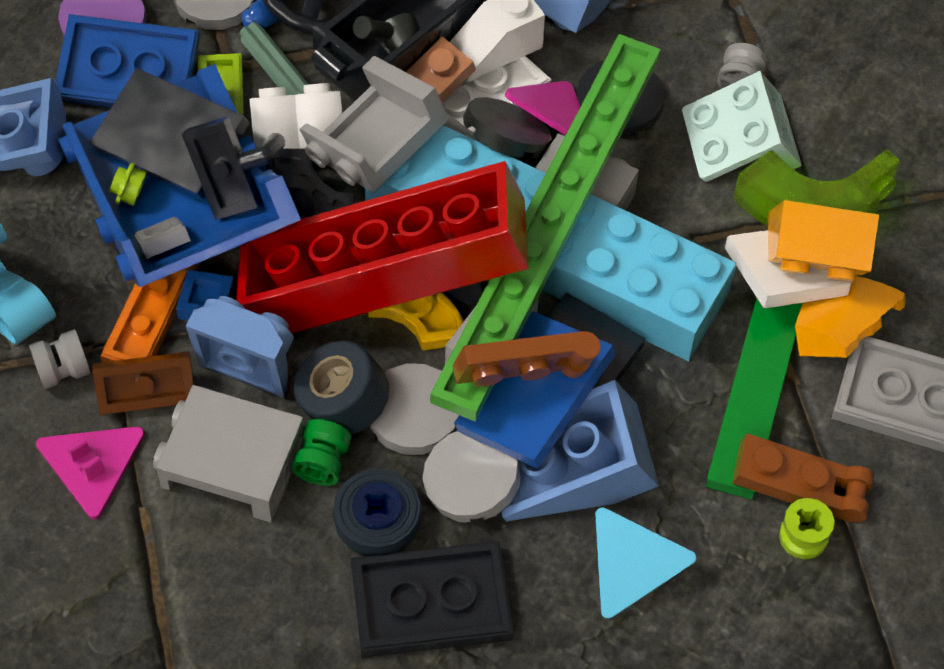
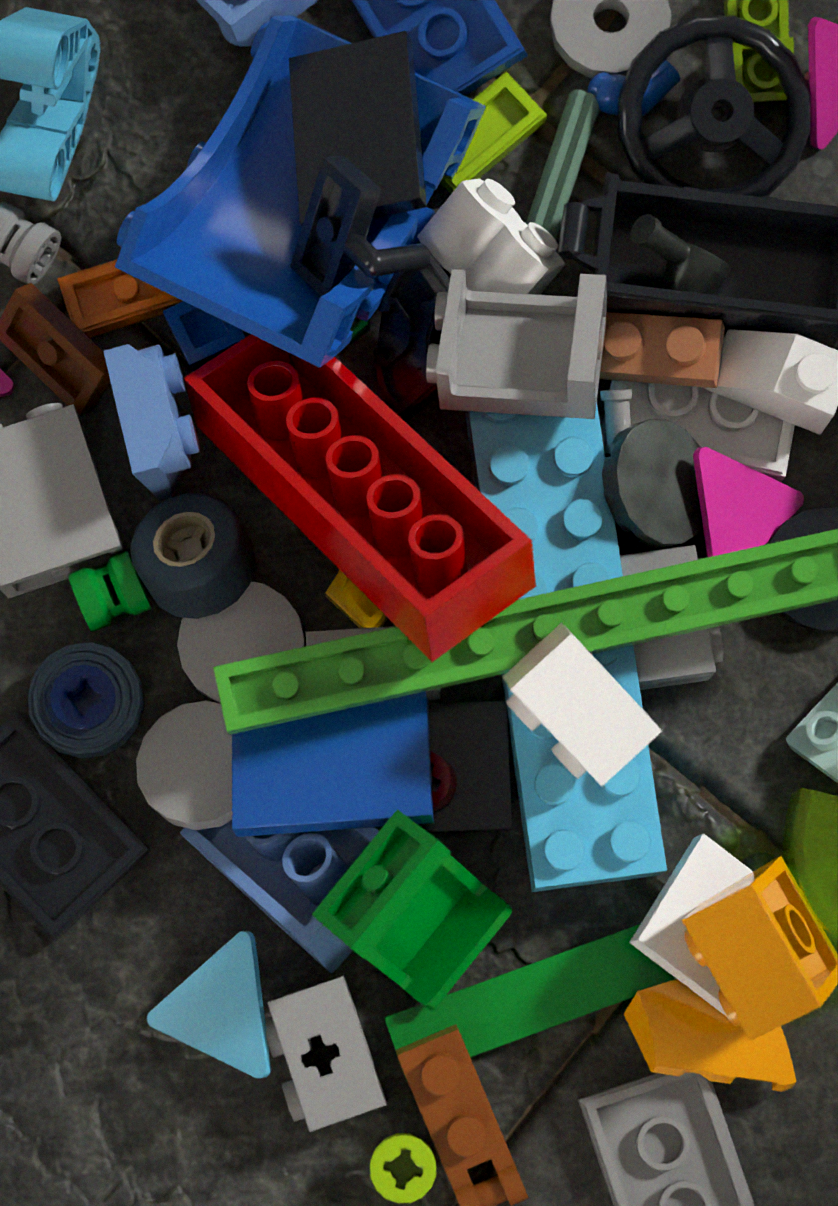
camera: 55 degrees right, 20 degrees up
(128, 184) = (269, 139): lime plate -> none
(161, 237) = (218, 231): light grey tile -> none
(526, 357) = (321, 745): dark orange plate -> none
(612, 219) = (580, 705): none -> white brick
(656, 408) = (413, 911): none -> green panel
(730, 514) = (354, 1080): none -> light grey brick

